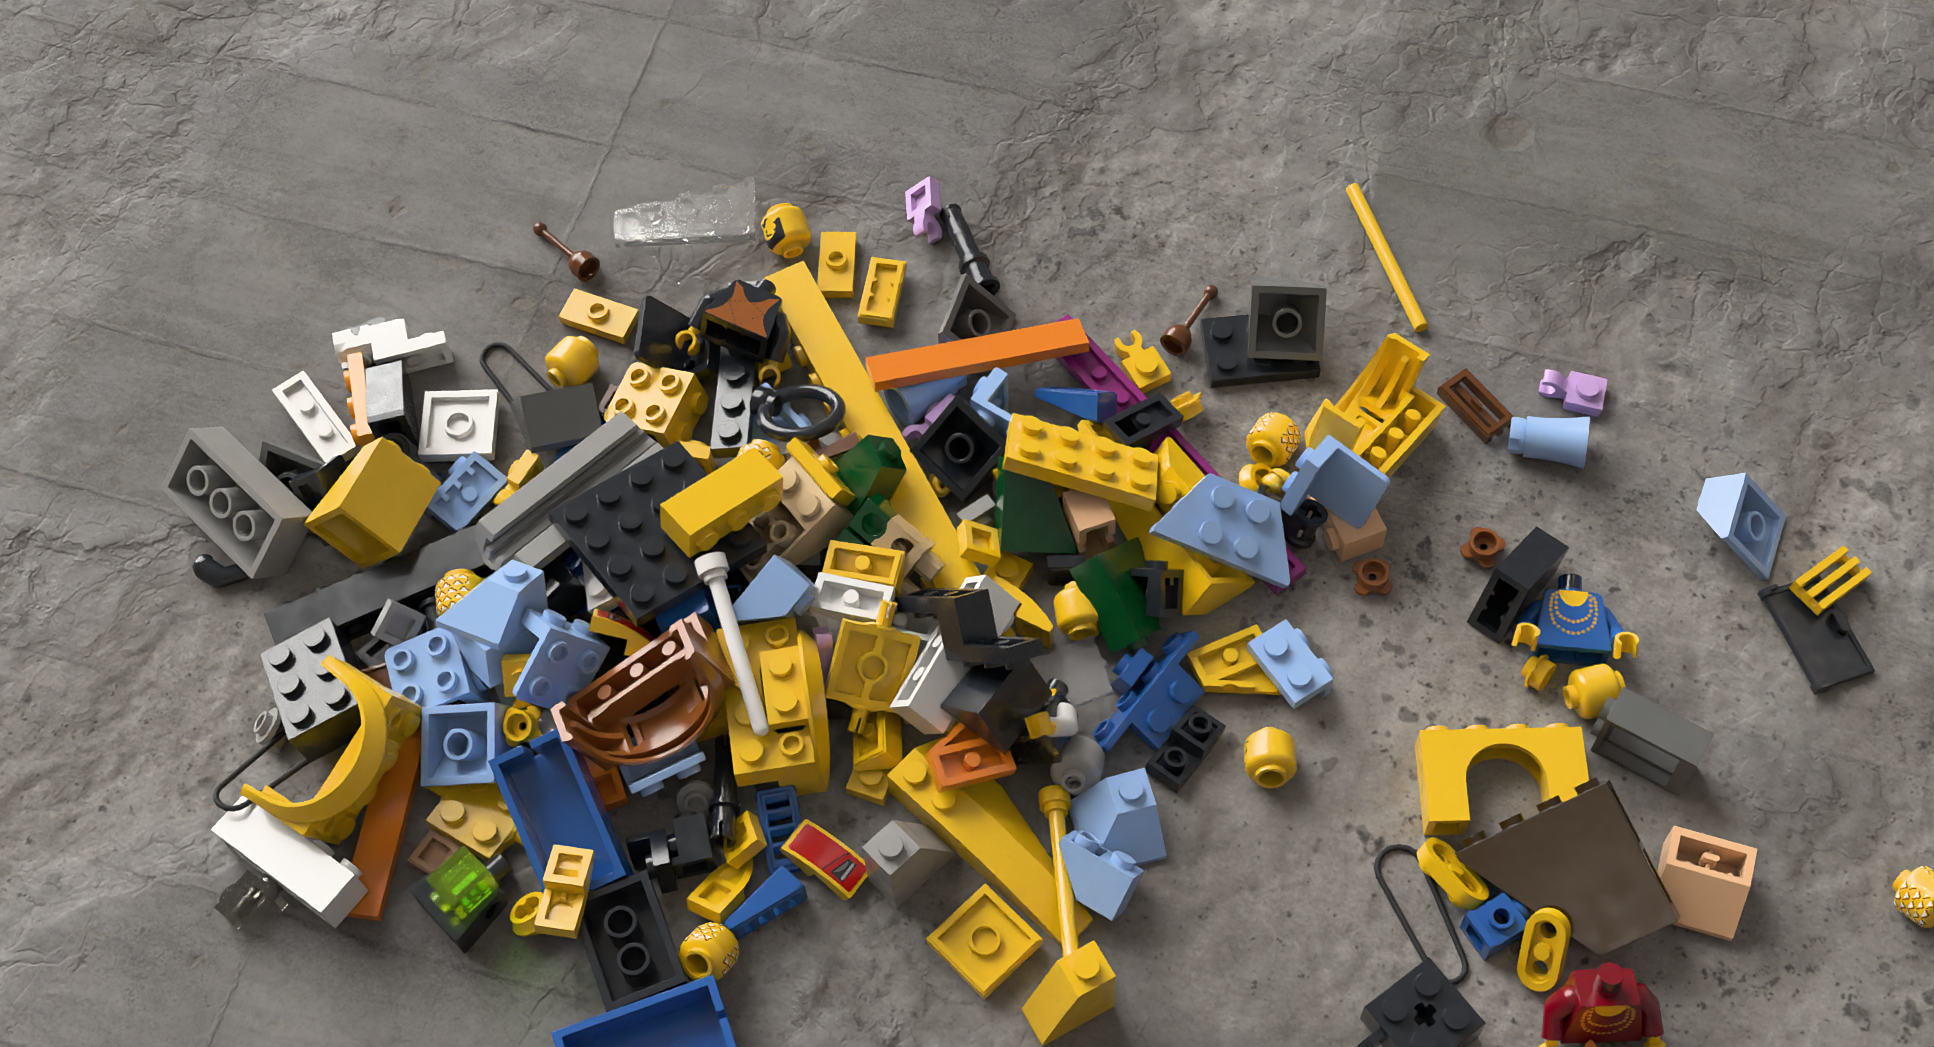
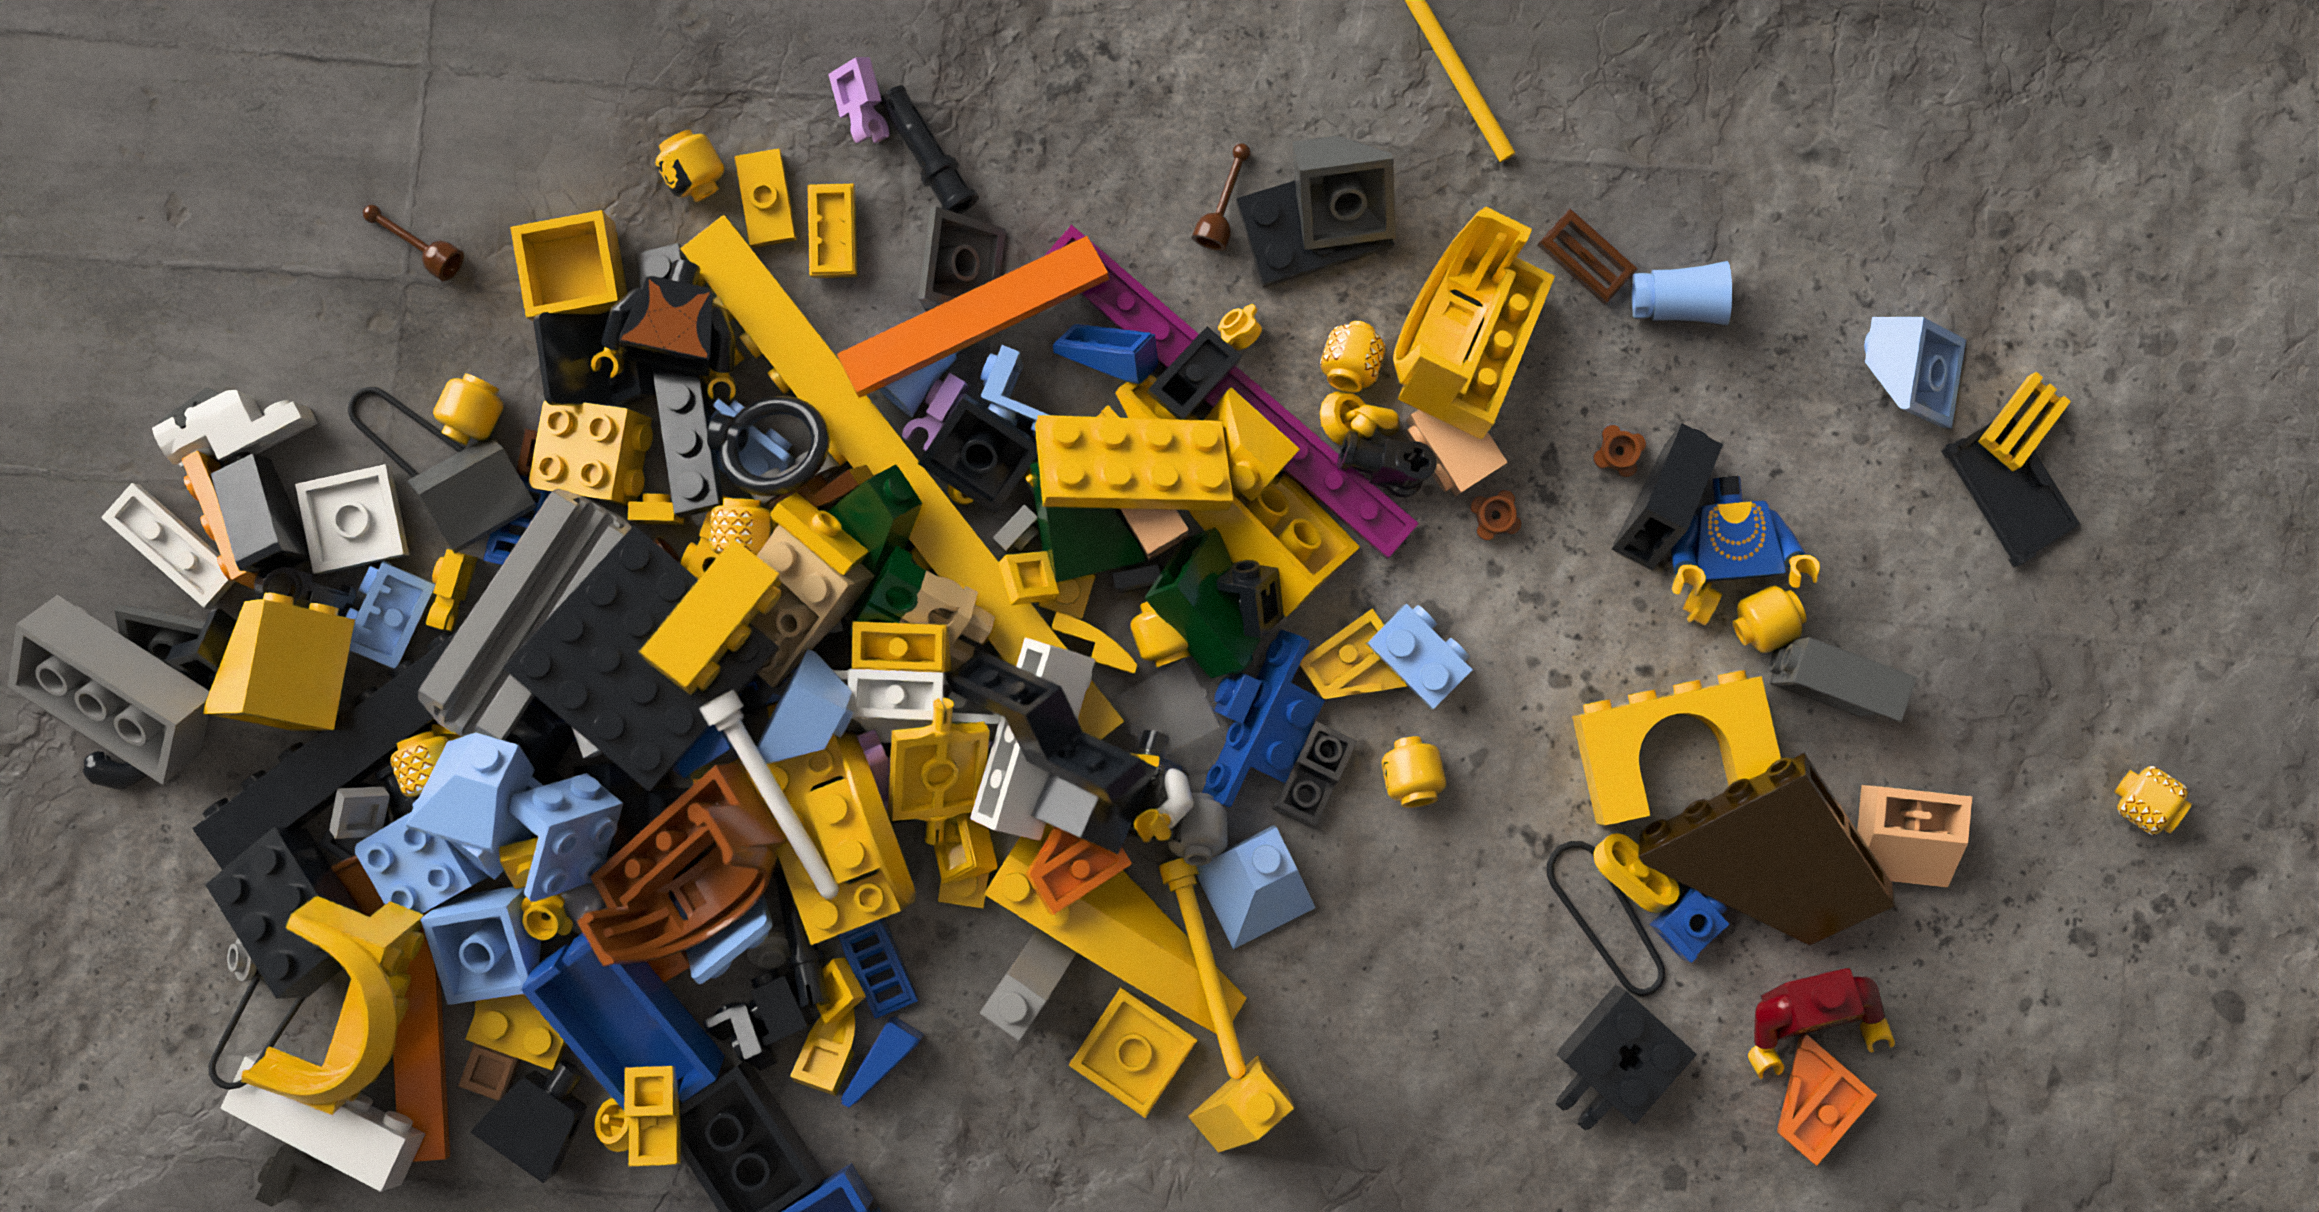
camera: 15 degrees left, 25 degrees up
(461, 883) = (531, 1126): clear neon green brick -> none
(599, 316) = (482, 328): yellow plate -> none
(617, 626) = (612, 782): yellow slope -> none
(677, 271) = (569, 264): none -> yellow piece
(707, 217) = (577, 161): clear wing -> none
(709, 951) = (830, 1135): yellow head -> none
(826, 857) = (935, 993): slope -> none
(1099, 876) = (1246, 957): light blue slope -> none
(1142, 366) = (1178, 276): yellow plate -> none
(1230, 527) = (1324, 507): light blue wing -> none
(1337, 481) = (1447, 427): light blue bracket -> none
(1543, 946) = (1747, 948): yellow plate -> none
(1580, 391) = (1709, 215): lavender plate -> none

